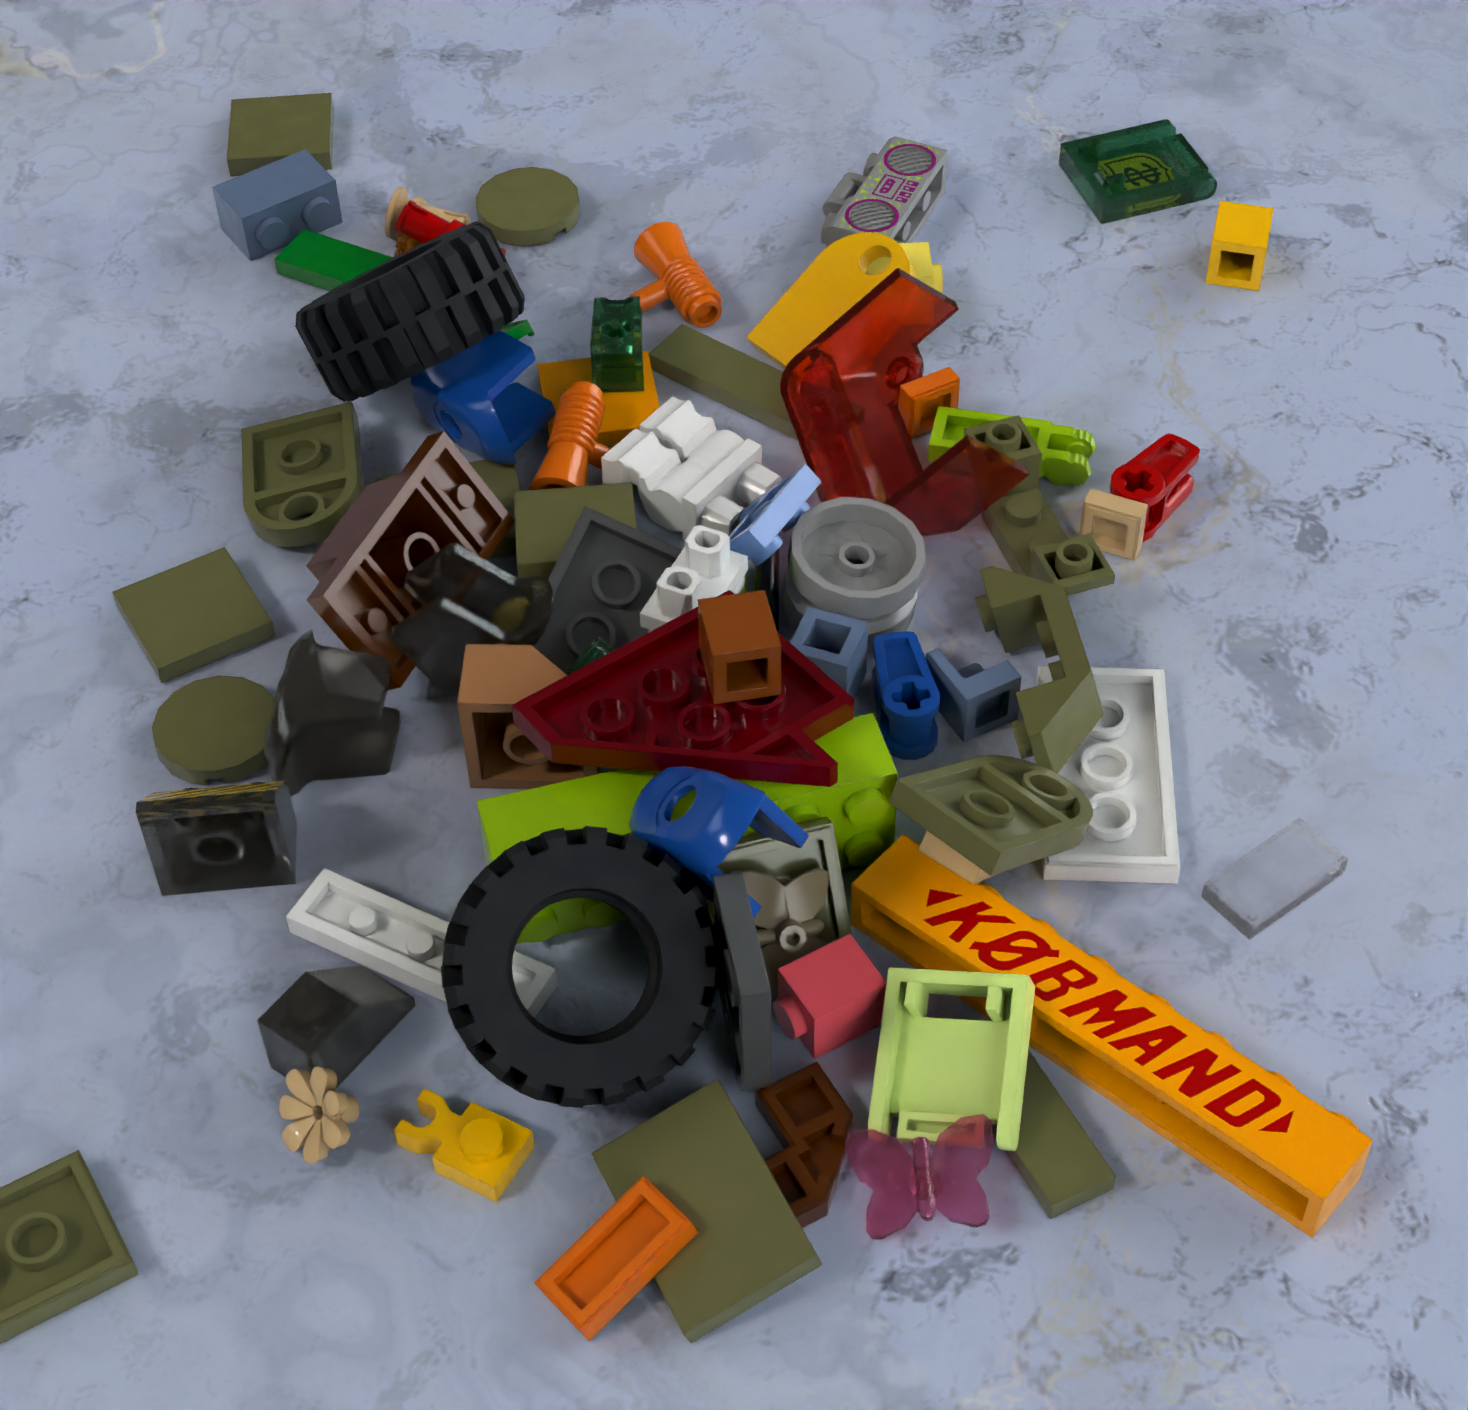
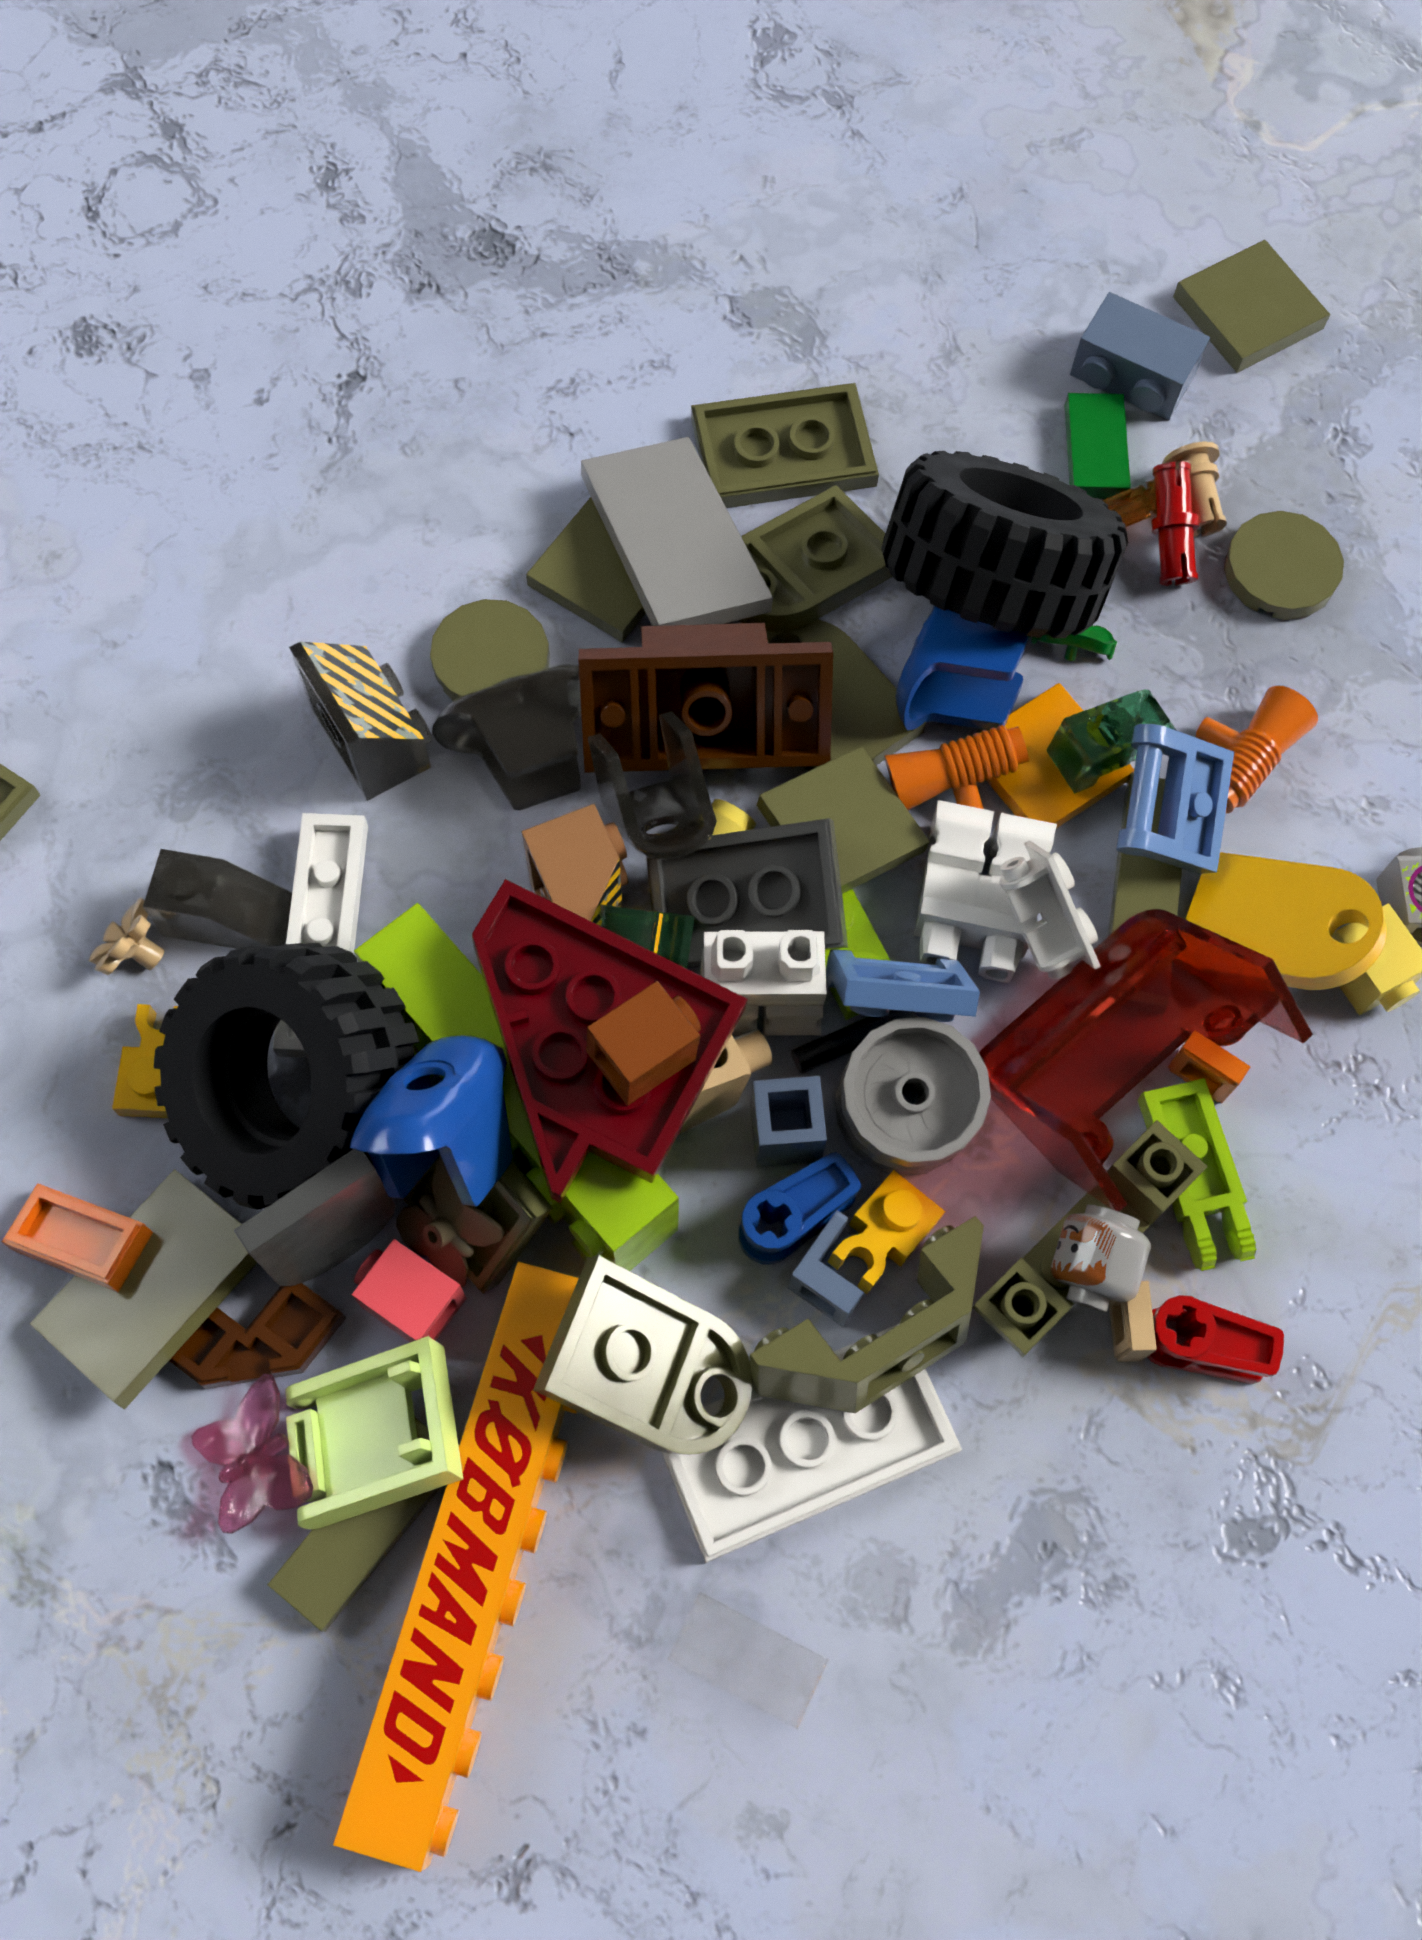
camera: 60 degrees right, 20 degrees up
(167, 455) = (785, 444): none -> olive tile
(210, 539) = (675, 535): none -> light grey tile
(701, 317) = (1191, 802): none -> medium blue plate
(746, 409) = (1043, 888): none -> white hinge
(956, 637) = (889, 1225): none -> yellow plate
(1057, 501) = (1100, 1257): none -> light grey head

